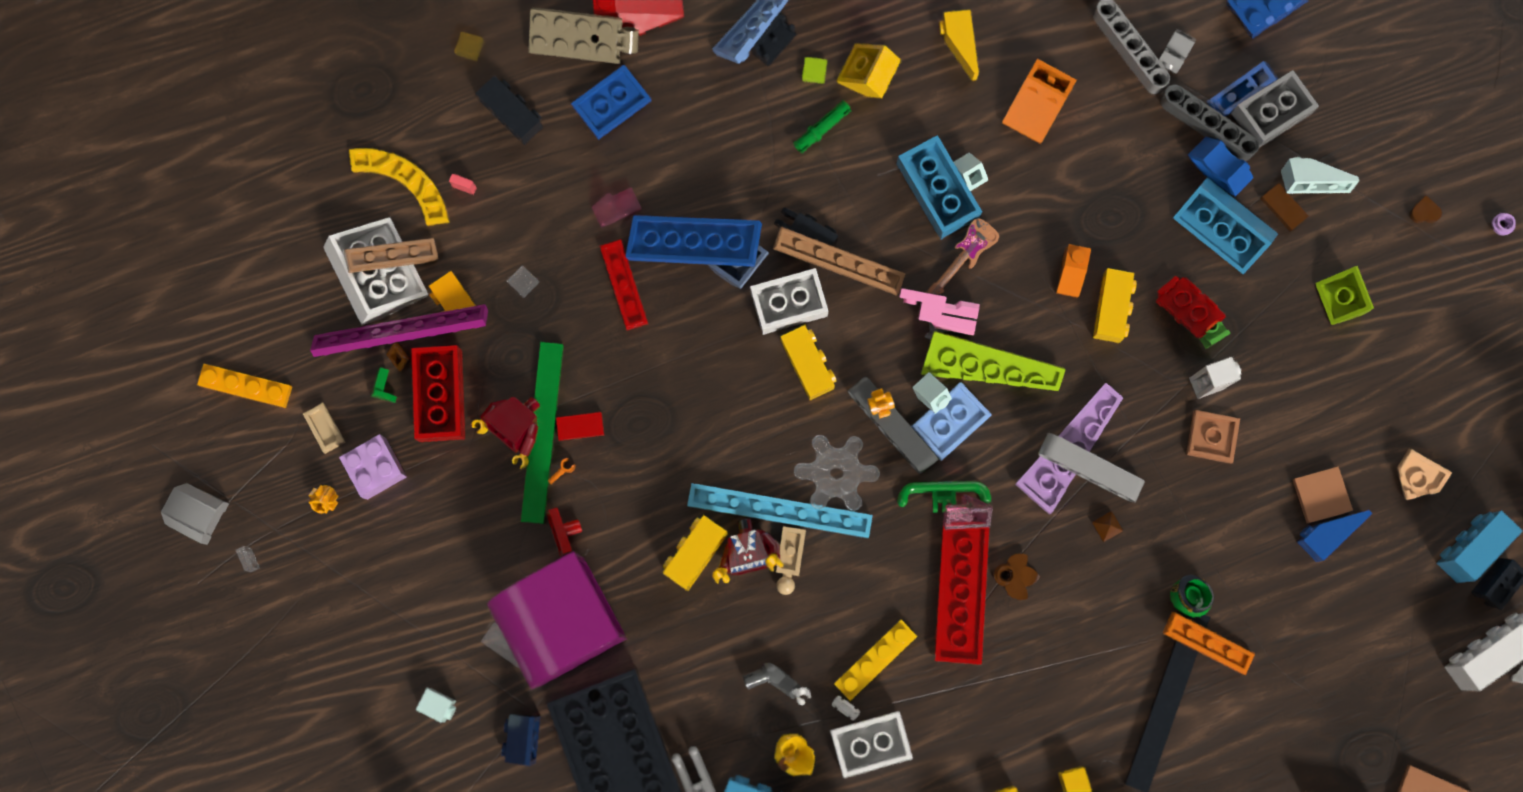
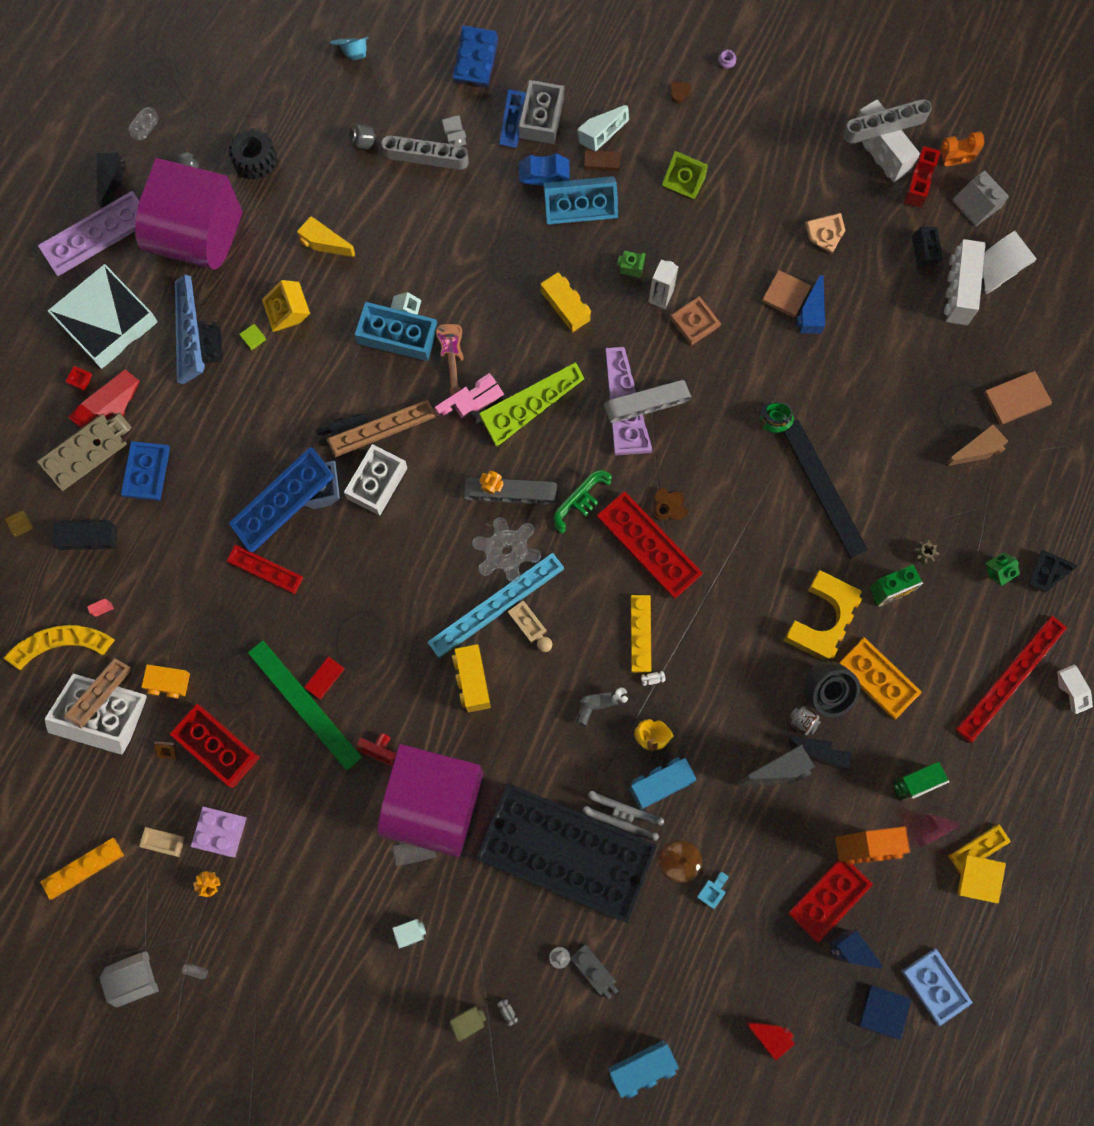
camera: 50 degrees left, 5 degrees down
(378, 386) = (171, 779): green tile -> none
(399, 330) = (150, 732): magenta plate -> none
(512, 424) = (281, 716): dark red torso -> none
(521, 739) = (482, 897): dark blue slope -> none
(523, 281) = (199, 628): clear tile -> none
(561, 471) = (340, 715): orange hand -> none
(616, 207) = (212, 530): clear pink slope -> none
(748, 552) = (503, 646): torso -> none
(808, 362) = (423, 504): yellow brick -> none
(816, 131) = (290, 371): green pin -> none
(871, 744) = (689, 682): white brick -> none
(932, 393) = (514, 449): light aqua brick -> none
(952, 424) = (541, 455): light blue tile -> none
(968, 514) = (606, 496): clear pink slope -> none
(1039, 101) = (404, 229): orange slope -> none
(1073, 270) = (522, 304): orange slope -> none
(1107, 526) = (690, 427): reddish brown slope -> none
(1189, 306) = (607, 261): red piece -> none
(1205, 112) = (503, 151): dark grey beam -> none
(1208, 643) = (812, 433): orange tile -> none
(1478, 546) = (896, 237): dark azure brick -> none

